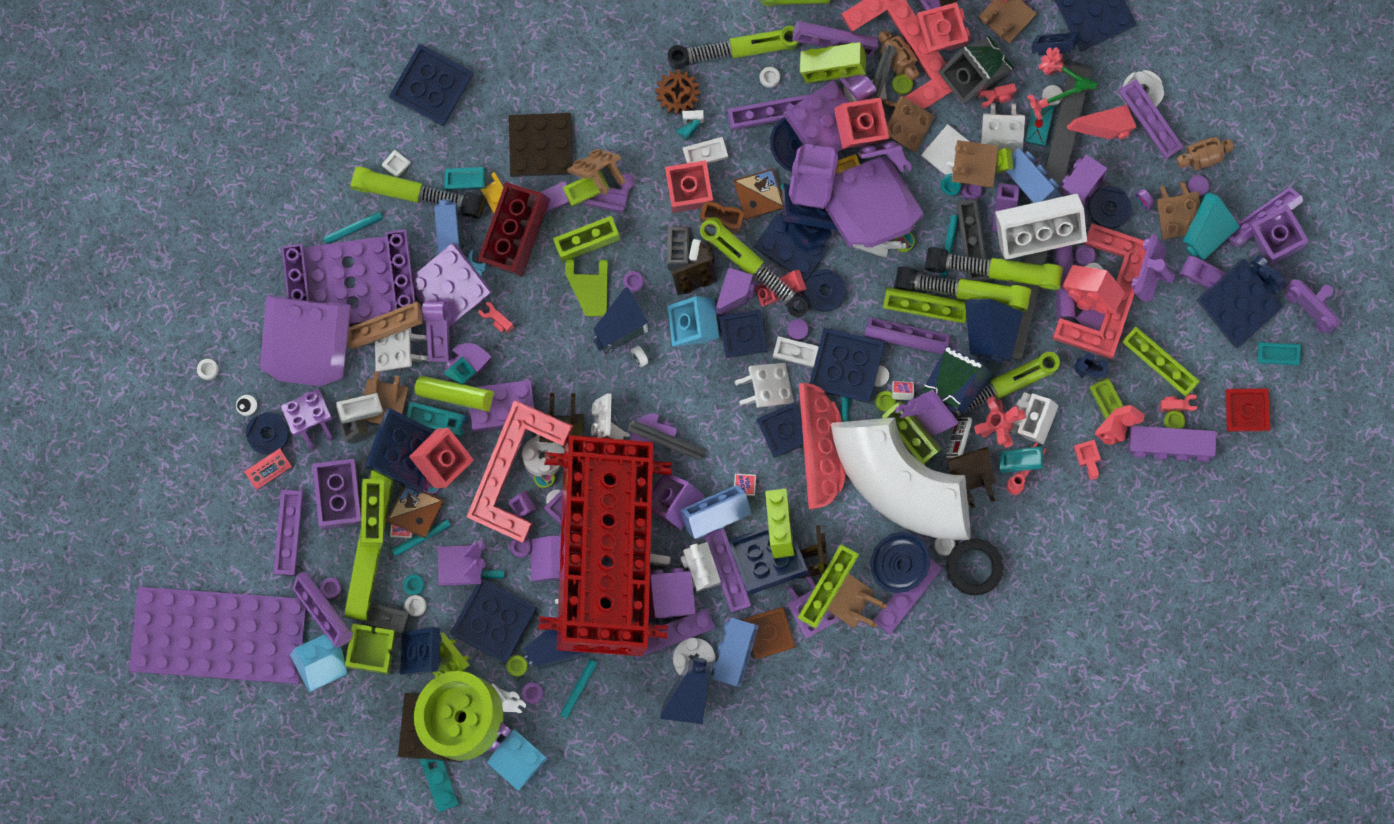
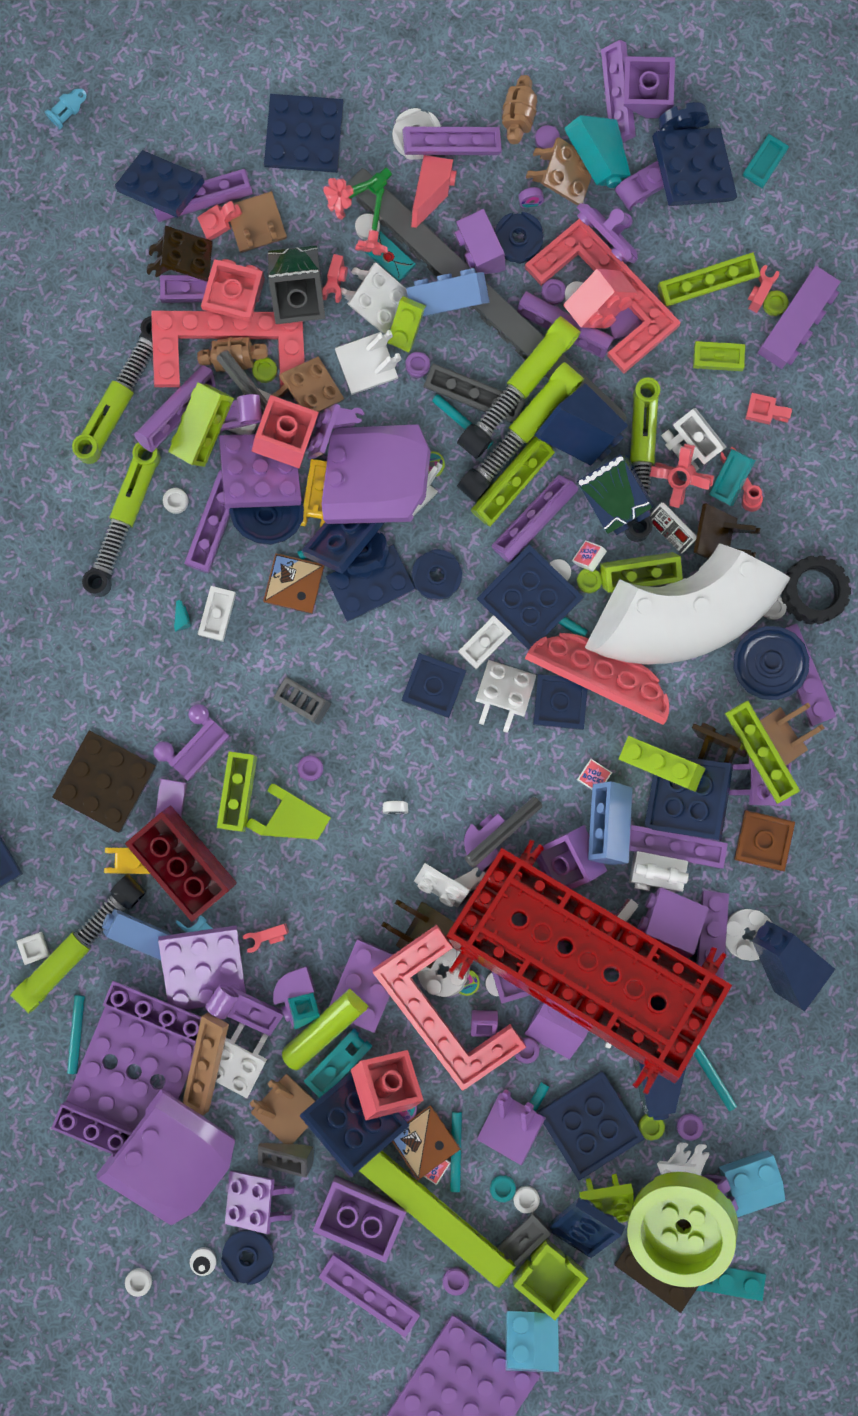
camera: 65 degrees left, 5 degrees up
(268, 469) = (287, 1278): coral tile -> none
(321, 610) = (478, 1309): medium lavender brick -> none
(359, 408) = (279, 1142): white tile -> none
(372, 513) = (407, 1198): lime brick -> none
(465, 178) = (93, 883): teal tile -> none
(582, 190) = (181, 761): lime tile -> none
(589, 166) = (159, 736): medium nougat plate -> none
(620, 323) = (350, 807): dark blue slope -> none
(685, 92) = (139, 596): dark orange gear -> none
(688, 186) = (244, 651): coral brick -> none
(689, 116) = (169, 606): white tile -> none
(693, 321) = (390, 730): medium azure slope -> none
(695, 250) = (318, 683): white tile -> none
(695, 274) = (344, 698): dark brown plate -> none
(731, 217) = (292, 640): dark orange brick -> none
(734, 652) = (768, 889): medium blue brick -> none
(735, 291) = (385, 666): medium lavender slope -> none
(753, 265) = (370, 632): piece -> none
(793, 280) = (408, 619): coral slope -> none
(797, 329) = (461, 626): medium lavender tile -> none
(813, 175) = (312, 514): medium lavender shield -> none
(930, 412) = (634, 540): medium lavender plate -> none
(950, 187) = (400, 381): teal tile -> none
(974, 163) = (398, 340): medium nougat plate -> none
(1005, 199) = (458, 341): medium lavender brick -> none
(1041, 226) = (506, 310): white brick -> none
(1063, 41) = (312, 195): dark blue plate -> none
(1089, 366) = (678, 350): dark blue animal -> none
(1115, 426) = (751, 364): coral slope -> none
(1247, 410) = (806, 224): red plate -> none
(1313, 304) = (742, 92): medium lavender shield -> none

